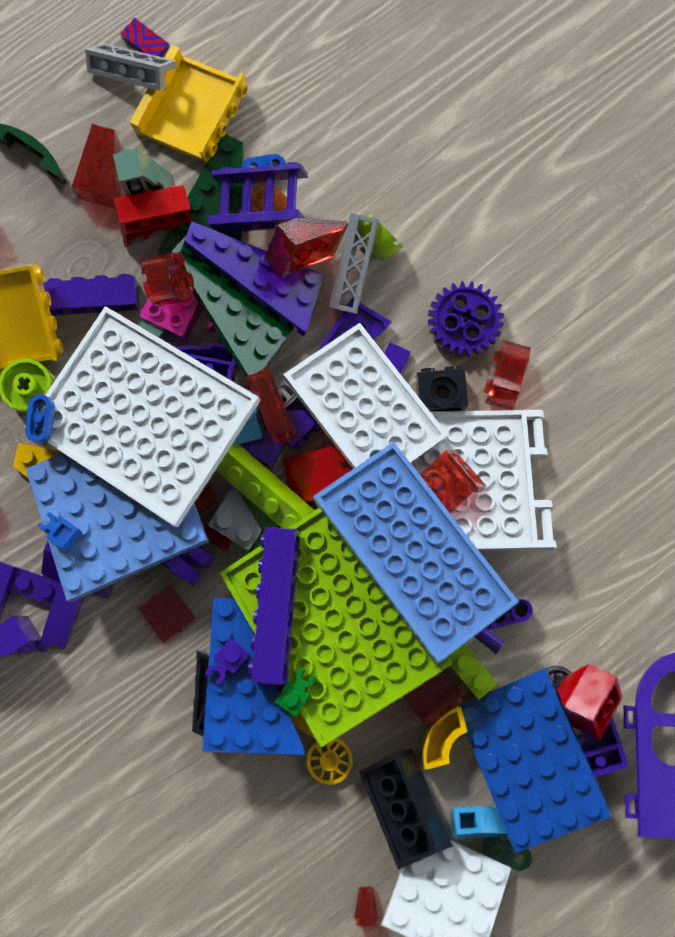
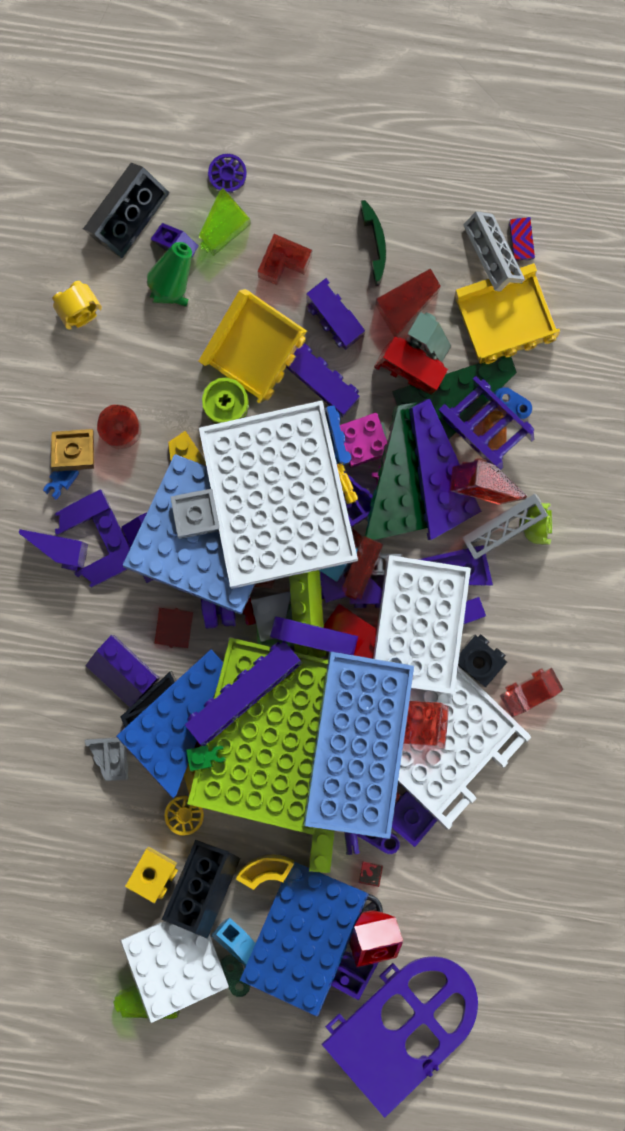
camera: 45 degrees right, 5 degrees up
(38, 420) = (211, 434): blue plate -> none
(49, 235) = (334, 315): none -> dark purple wedge
(61, 532) = (159, 520): blue plate -> none
(87, 497) = (195, 513): none -> light grey plate
(147, 322) = (337, 436): none -> blue plate
(156, 692) = (121, 670): none -> dark purple slope
(167, 279) = (376, 425): clear red brick -> none
(196, 354) = (347, 487): none -> yellow axle
(219, 775) = (110, 757): none -> light grey wing
(229, 659) = (185, 697): dark purple plate -> none
(284, 501) = (313, 636): none -> dark purple beam
(365, 848) = (152, 887): none -> yellow brick
(366, 908) = (119, 923): clear red cone -> none
(434, 697) = (283, 843): clear red bracket -> none
(474, 300) = (559, 623): dark purple gear -> none
(518, 570) = (411, 819): none -> dark purple plate
(530, 651) = (370, 874): none -> clear red tile

